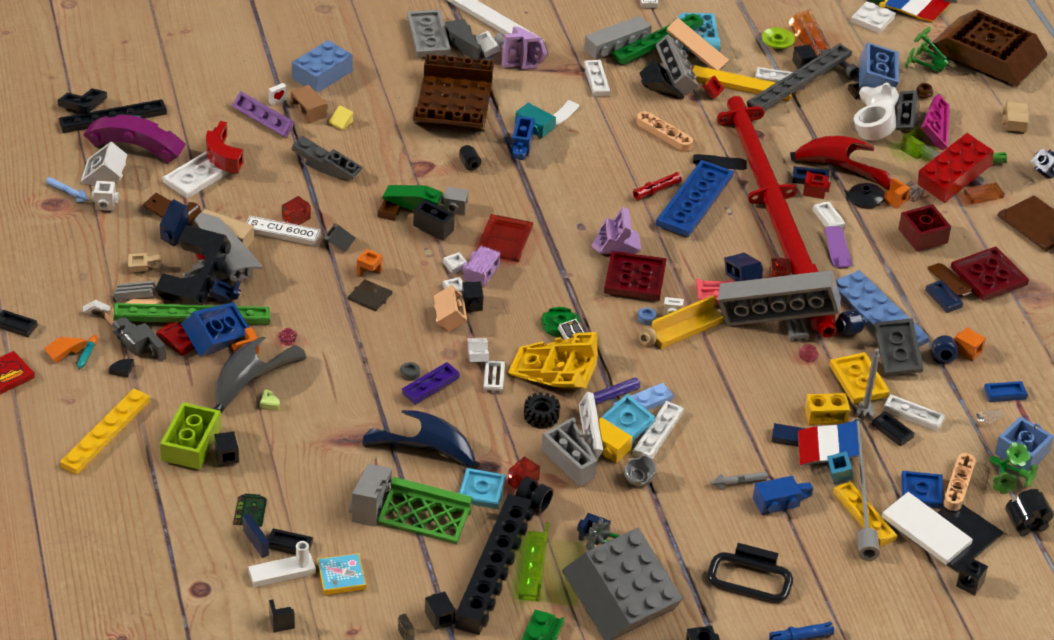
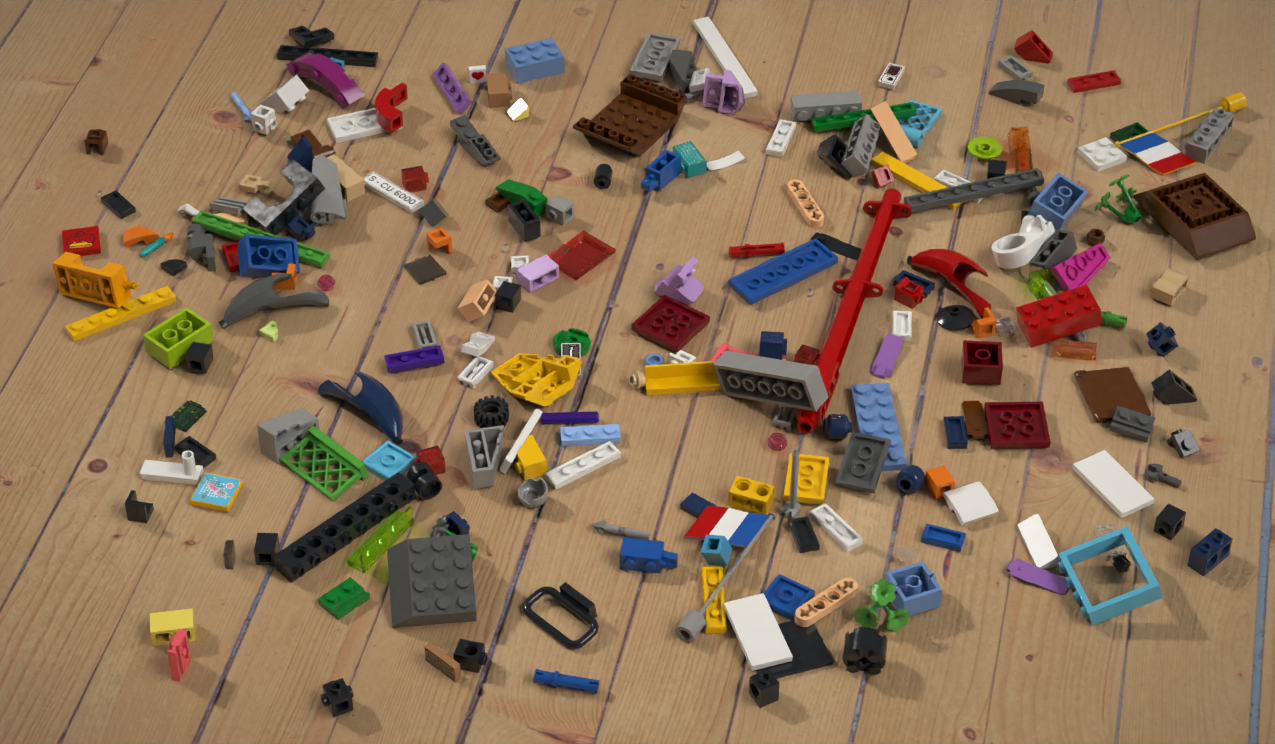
camera: 30 degrees right, 0 degrees up
(83, 407) = (99, 286): none -> light orange brick
(410, 371) = (406, 343): dark grey tile -> none
(412, 356) = (431, 333): none -> light grey tile
(630, 416) = (559, 445): medium azure tile -> none
(1006, 353) = (971, 503): none -> white slope

